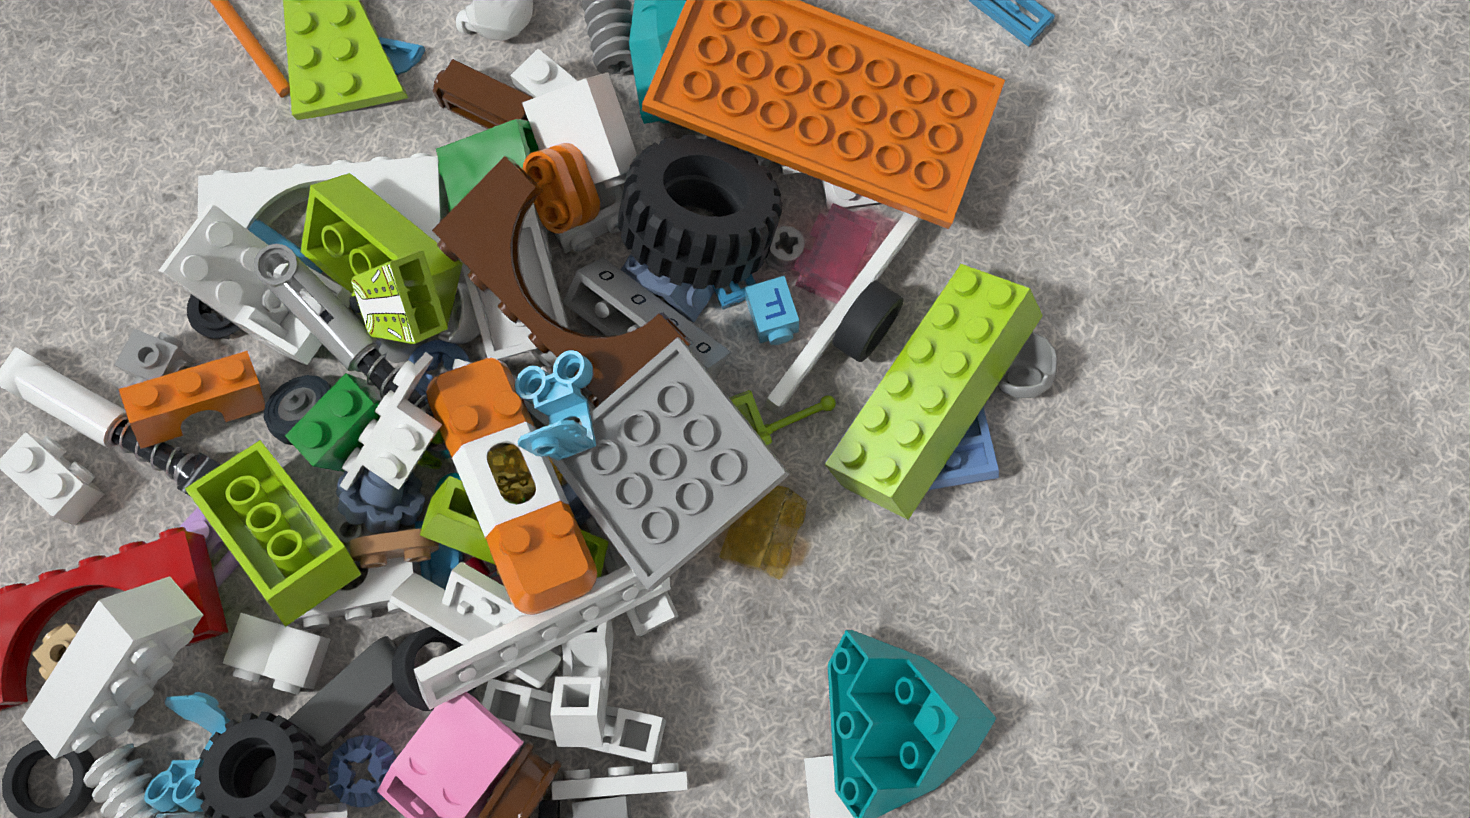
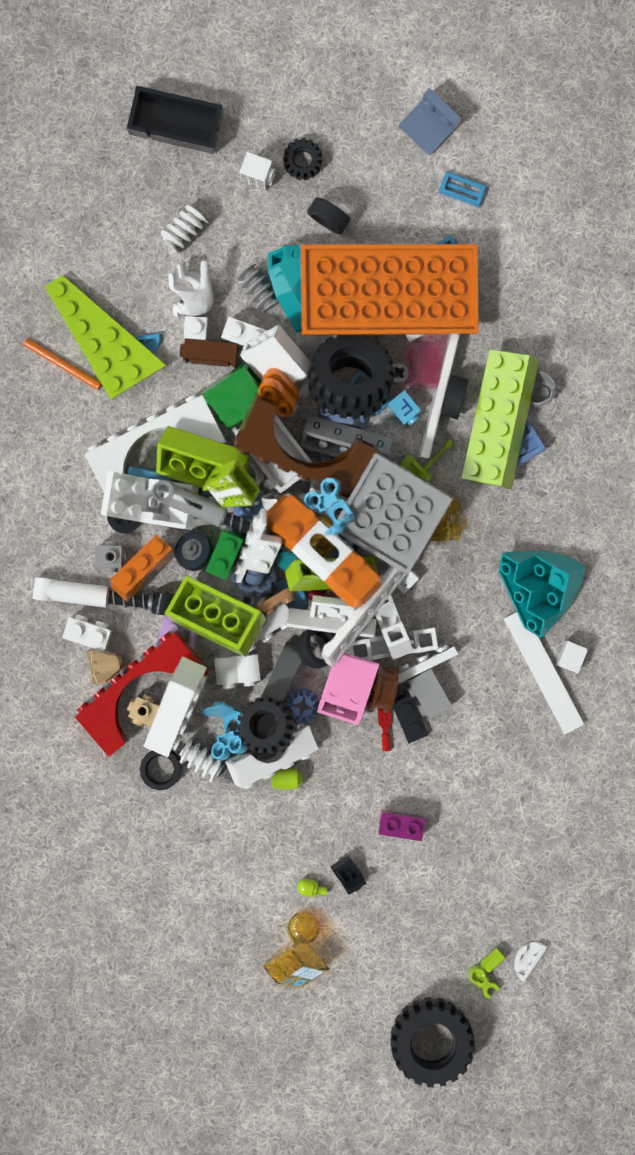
camera: 25 degrees left, 15 degrees up
(45, 545) = (103, 665): none -> tan brick
(480, 51) = (195, 328): none -> white brick

